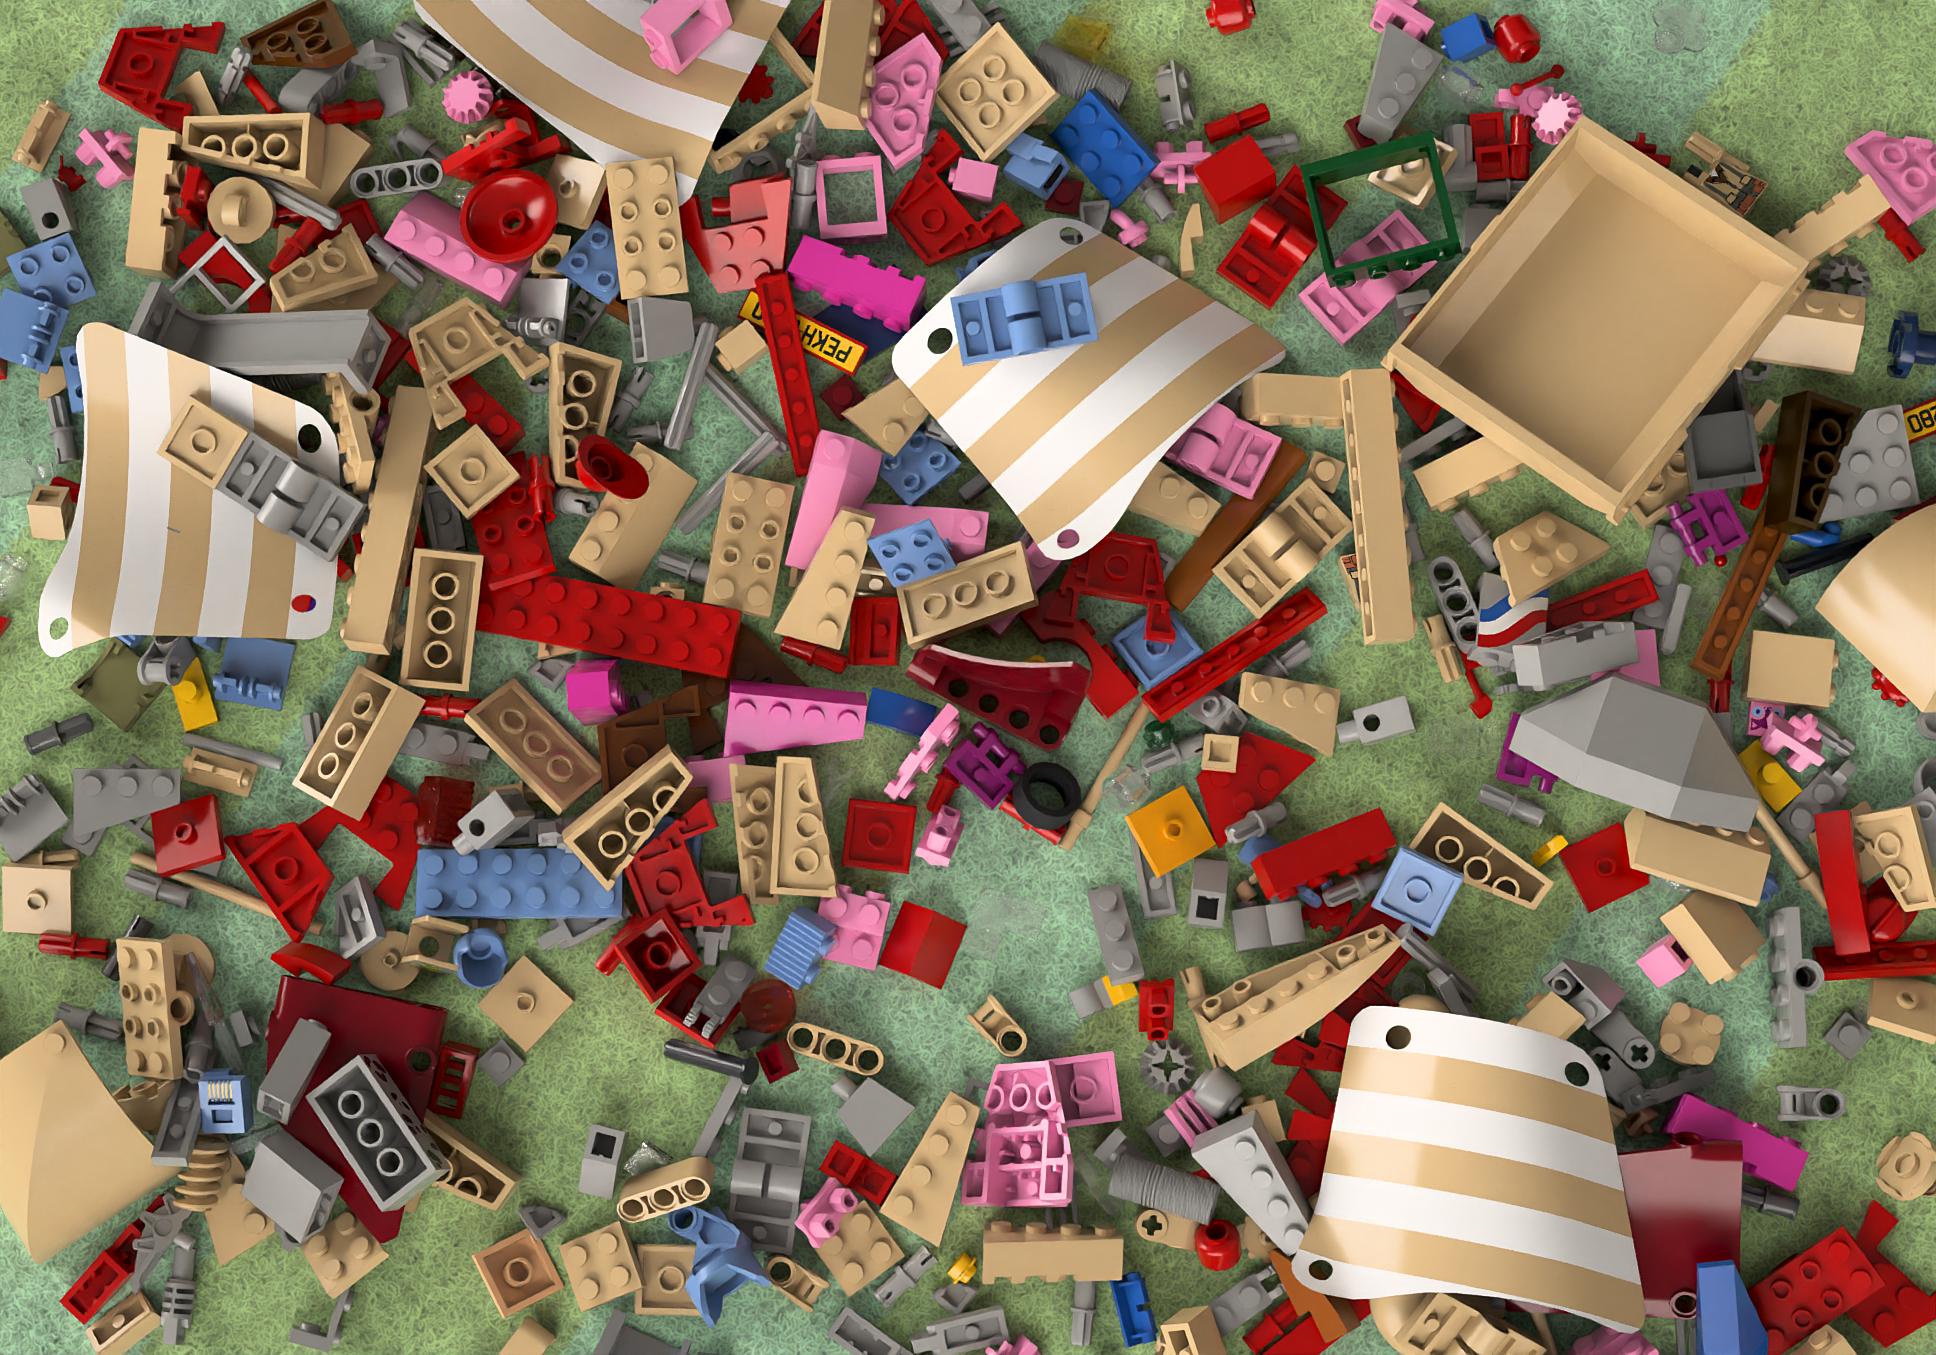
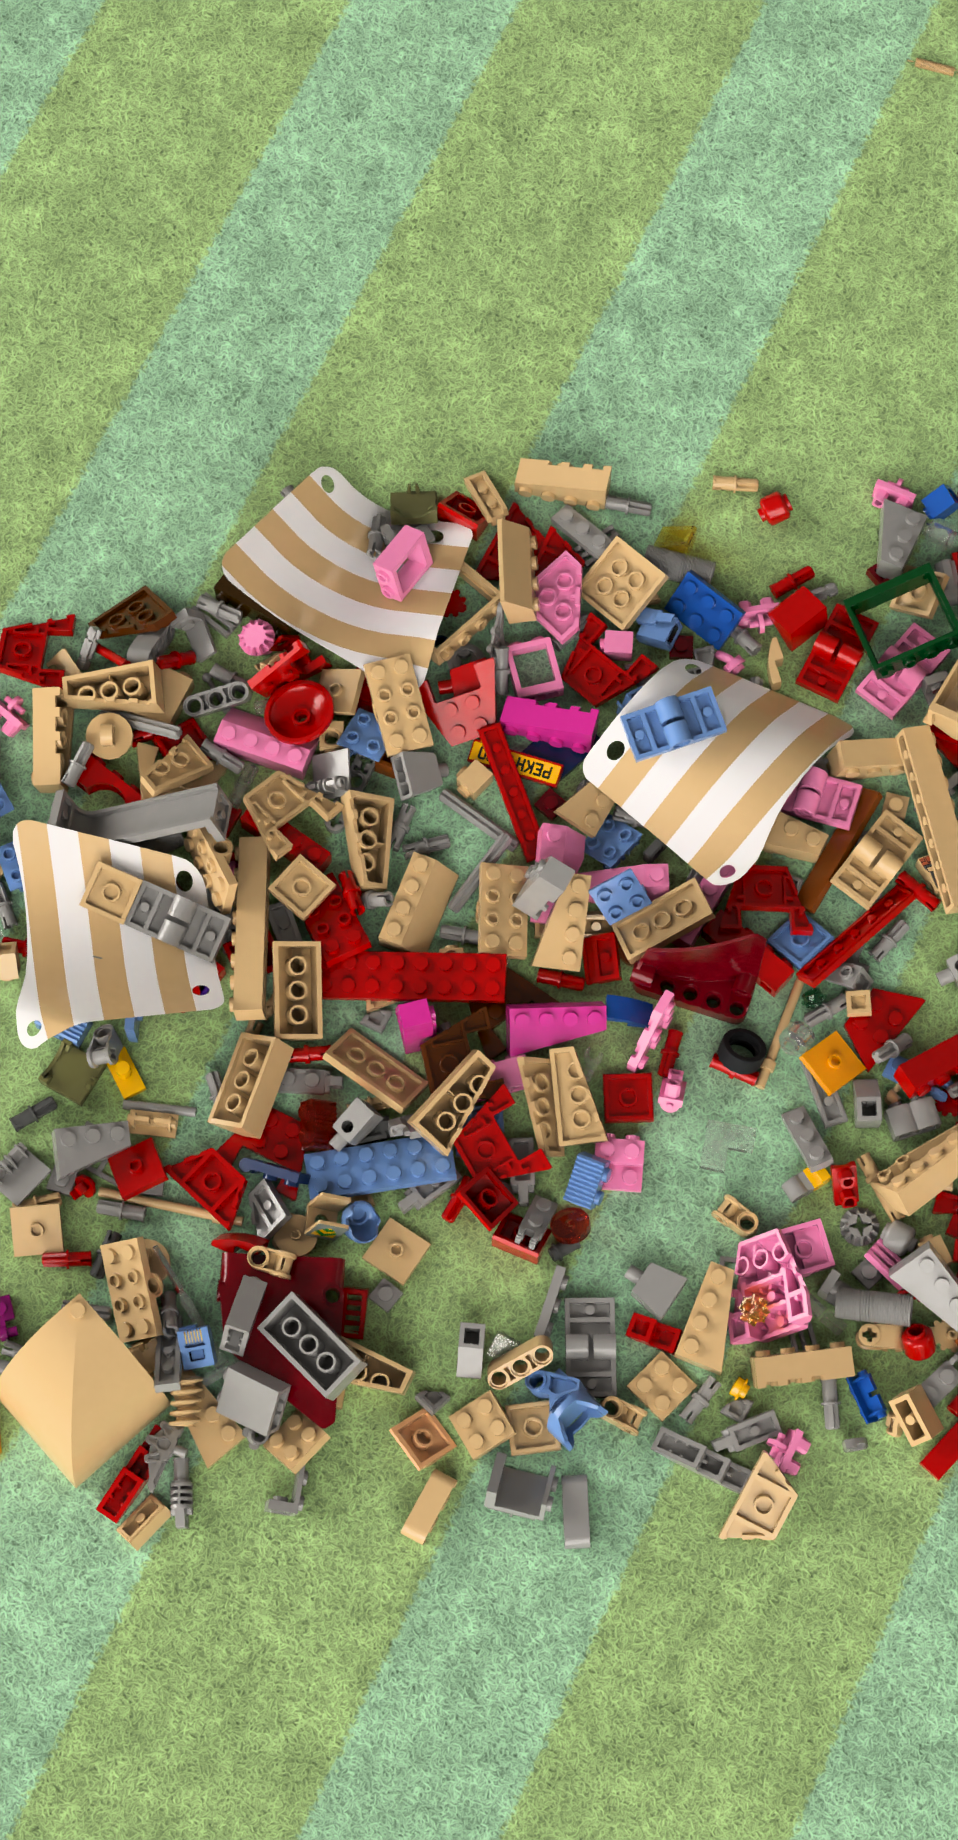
camera: 10 degrees left, 10 degrees down
(113, 846) = (83, 1186): none -> red plate
(189, 246) = (77, 765): none -> light grey axle
(195, 195) = (76, 730): red plate -> none
(212, 286) = (96, 789): light grey window -> none
(246, 1028) = (200, 1297): light grey plate -> none
(254, 672) = (166, 1050): medium blue hinge -> none
(297, 245) = (153, 753): red axle -> none
(349, 1005) = (273, 1261): none -> tan piece
(373, 869) = (273, 1172): none -> dark blue plate
(608, 468) = (398, 871): red piece -> none
(691, 386) = (444, 810): light grey axle -> none
(713, 1060) = (538, 1267): black axle -> none
(777, 1061) = (583, 1263): dark red plate -> none
(803, 526) = (543, 884): none -> light grey wedge
(823, 1037) = (635, 1244): tan beam -> none
(823, 1213) = (636, 1360): bright pink hips -> none
(922, 944) = (671, 1167): red slope -> none
(977, 772) = (690, 1042): magenta plate -> none
(997, 1168) = (753, 1309): none -> clear yellow gear
(1174, 84) = (744, 562): light grey hinge -> none
(1295, 707) = (904, 965): tan wing -> none
(1334, 600) = (919, 890): none -> red pin

